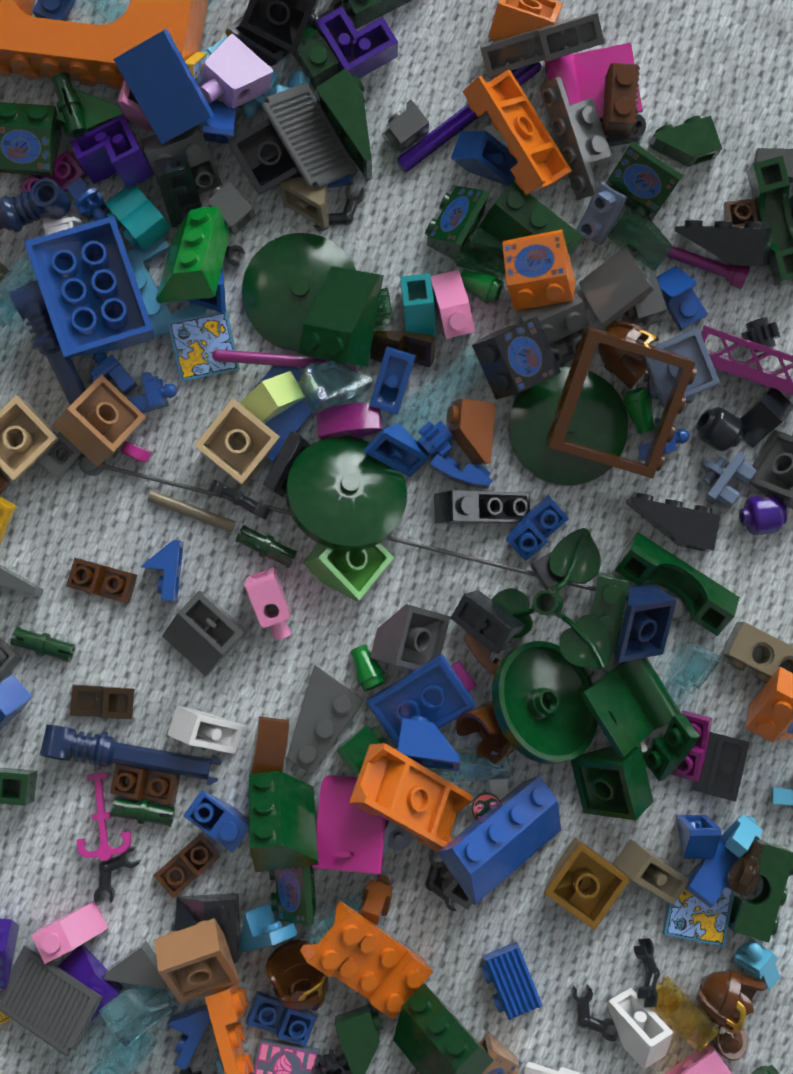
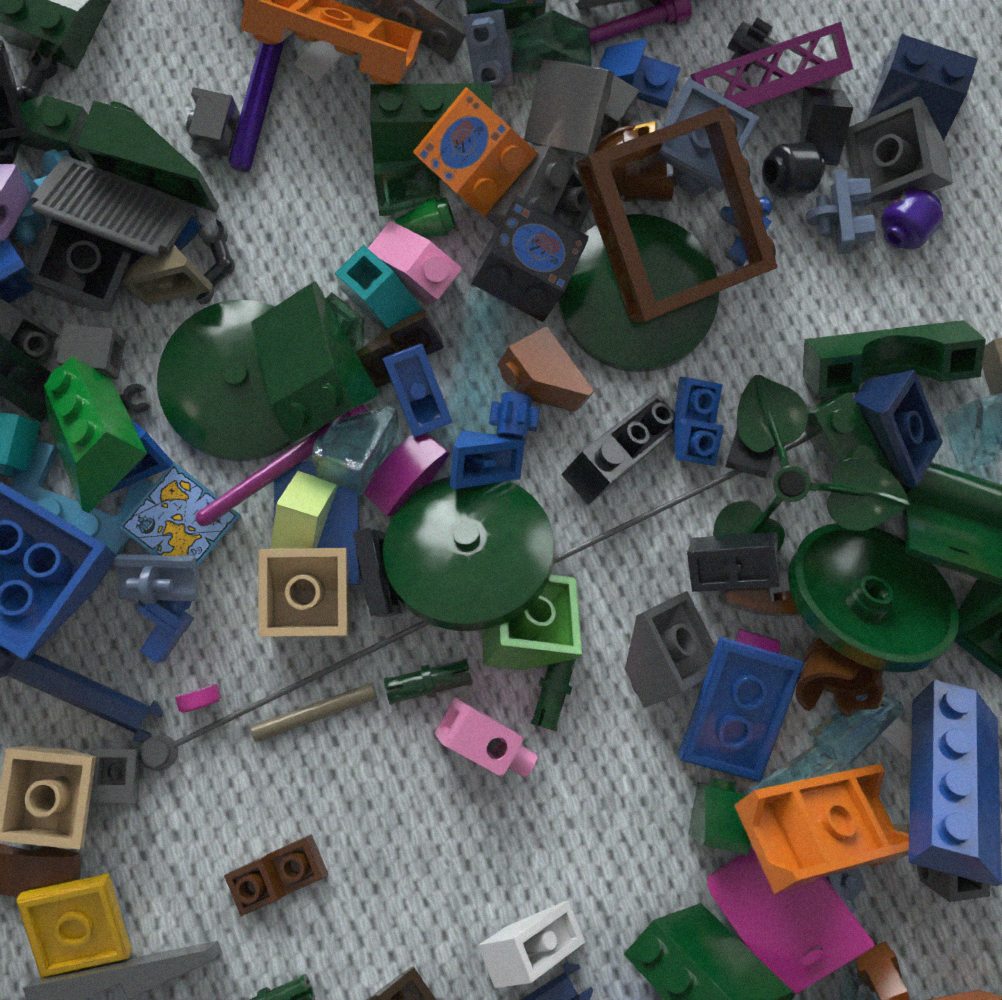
camera: 40 degrees left, 5 degrees down
(99, 420) = (126, 698): medium nougat slope -> none
(112, 368) = (93, 631): blue piece -> none
(166, 368) = (157, 577): none -> sand blue hips
(170, 561) = (335, 788): blue slope -> none
(203, 633) = (439, 836): dark grey slope -> none
(239, 499) = (357, 654): black arm -> none
(269, 745) = (617, 900): reddish brown slope -> none
(321, 720) = (648, 820): dark grey wing -> none
(328, 609) = (553, 694): none -> dark green pin
(358, 50) = (101, 72): dark purple brick -> none
(367, 670) = (652, 723): green cone -> none
(427, 745) = (792, 750): blue slope -> none
(432, 882) = (917, 896): black arm -> none
(457, 220) = (345, 173): dark green slope -> none
(472, 475) = (583, 423): blue slope -> none
(483, 803) = (897, 762): tile -> none
(484, 156) = (320, 88): blue slope -> none
(639, 407) = (695, 213): green cone -> none
(683, 526) = (841, 297): black slope -> none

